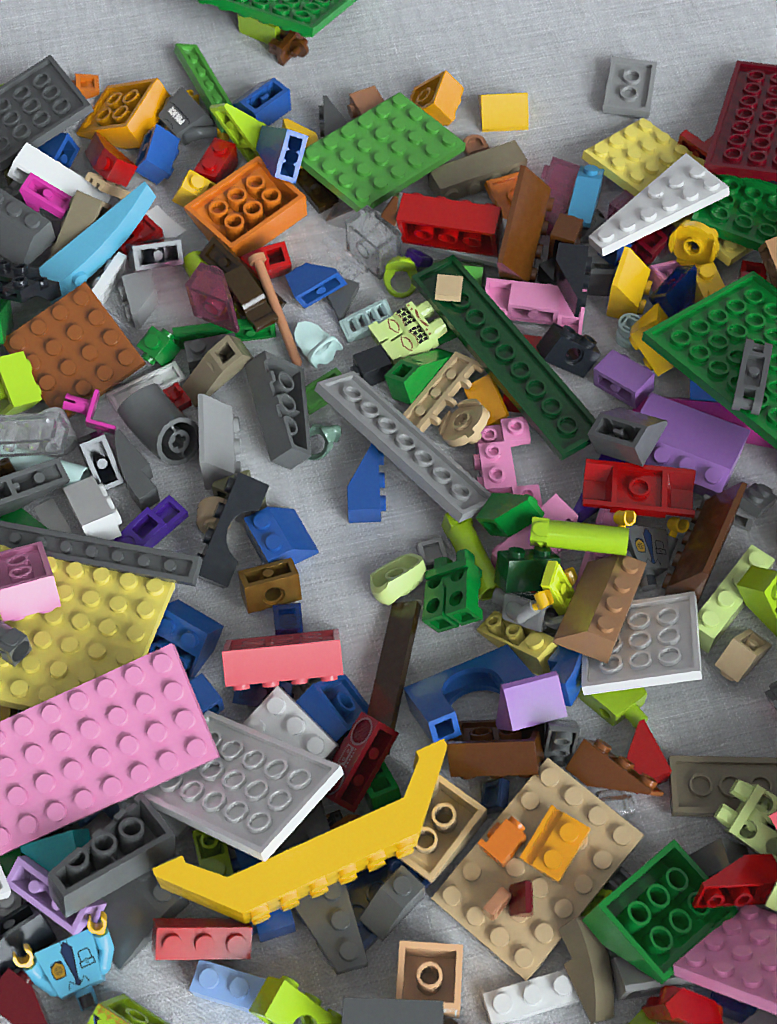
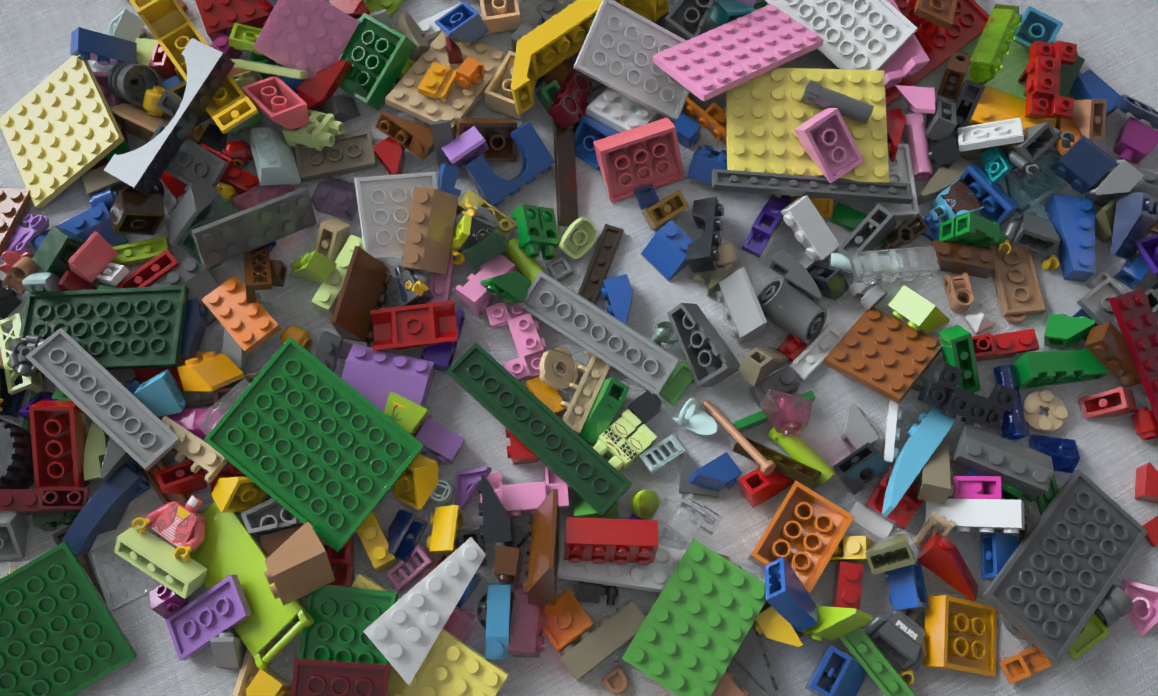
camera: 170 degrees right, 10 degrees up
(88, 408) = (851, 312): dark pink bracket -> none
(158, 347) = (820, 381): green brick -> none
(163, 170) = (891, 554): none -> olive torso
(249, 299) = (762, 431): dark brown piece -> none
(382, 540) = (600, 263): none -> dark brown tile
(391, 210) = (667, 544): reddish brown slope -> none
(448, 288) = (596, 473): tan tile -> none
(495, 795) = (480, 111): dark blue tile -> none
(497, 903) = (468, 45): nougat tile -> none
(501, 955) = (462, 23): none -> blue slope
(568, 349) = (487, 446): black brick -> none
(579, 536) = (452, 267): lime piece -> none
(600, 330) = (467, 484): none -> medium lavender tile
(626, 434) = (427, 361): dark grey slope -> none
(662, 392) = (405, 412): none -> lime torso
(695, 232) = (391, 580): yellow plate -> none
(728, 717) = (336, 198): none -> clear purple slope
(752, 376) = (330, 410): dark grey plate -> none

